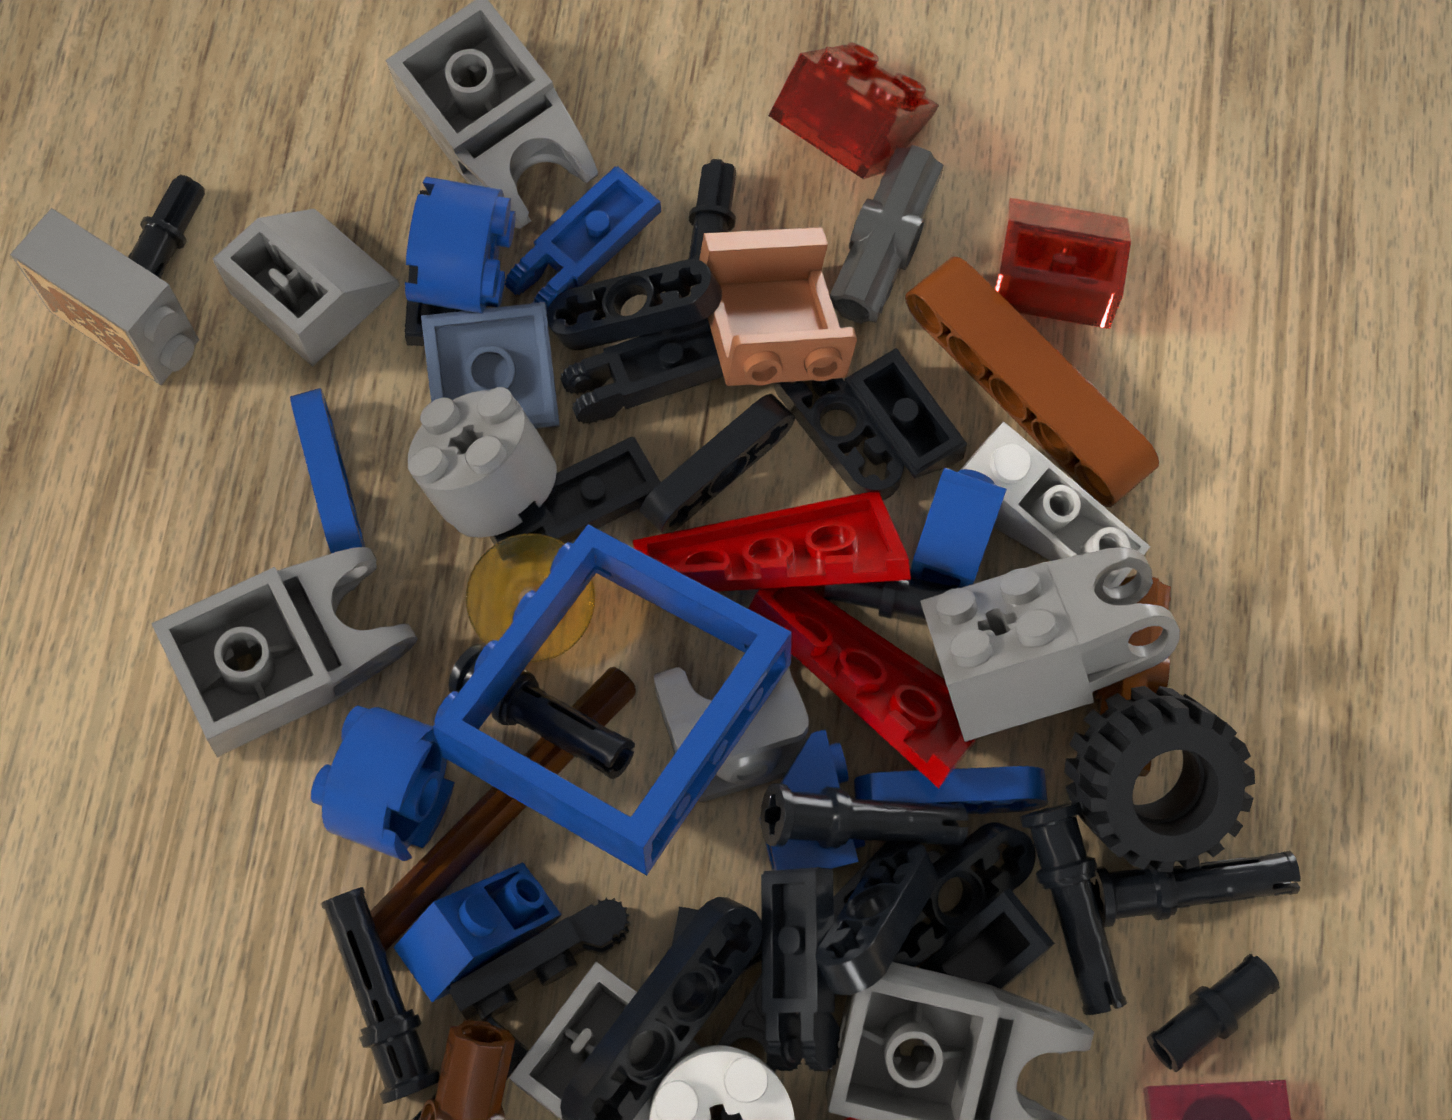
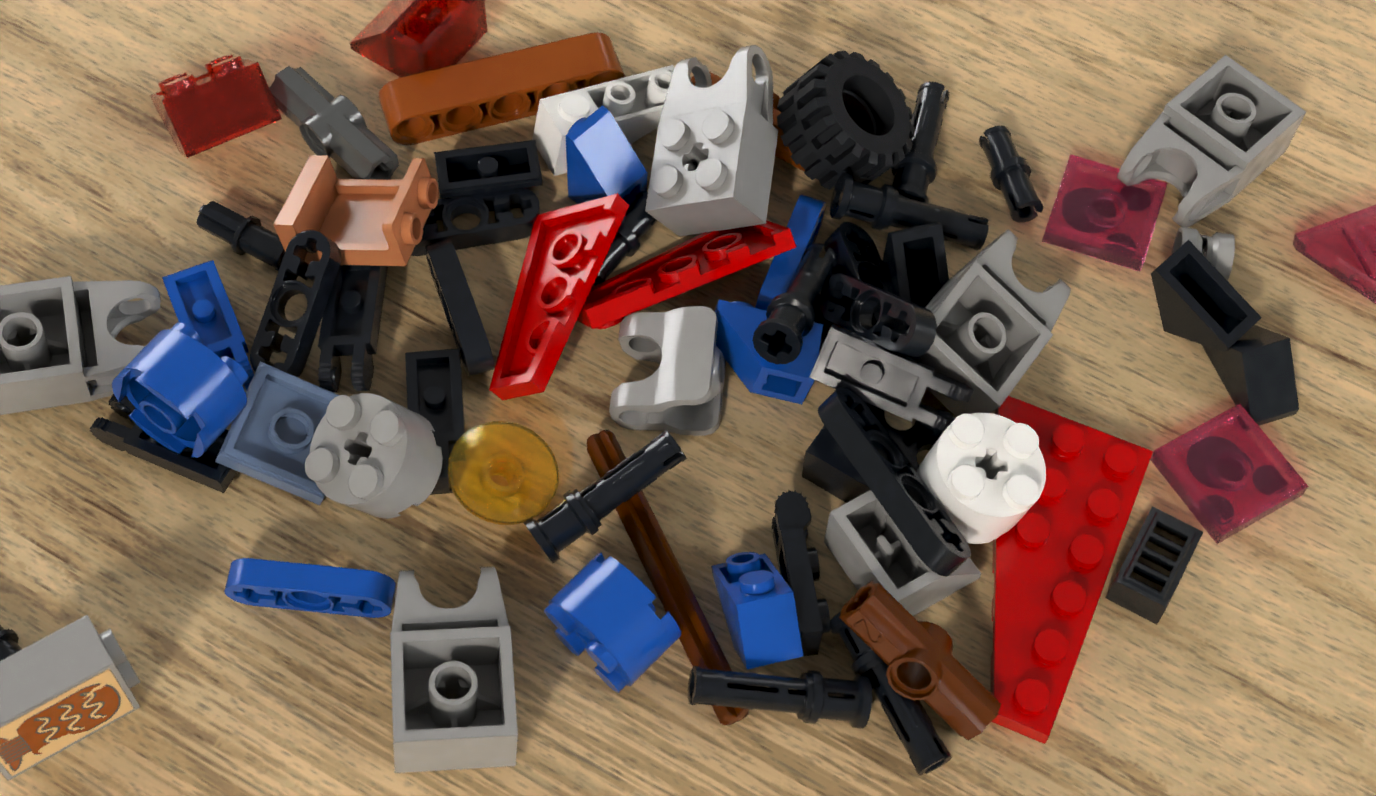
camera: 70 degrees left, 10 degrees down
(303, 280) = (123, 546): light grey slope -> none
(648, 831) = (680, 490): blue window -> none

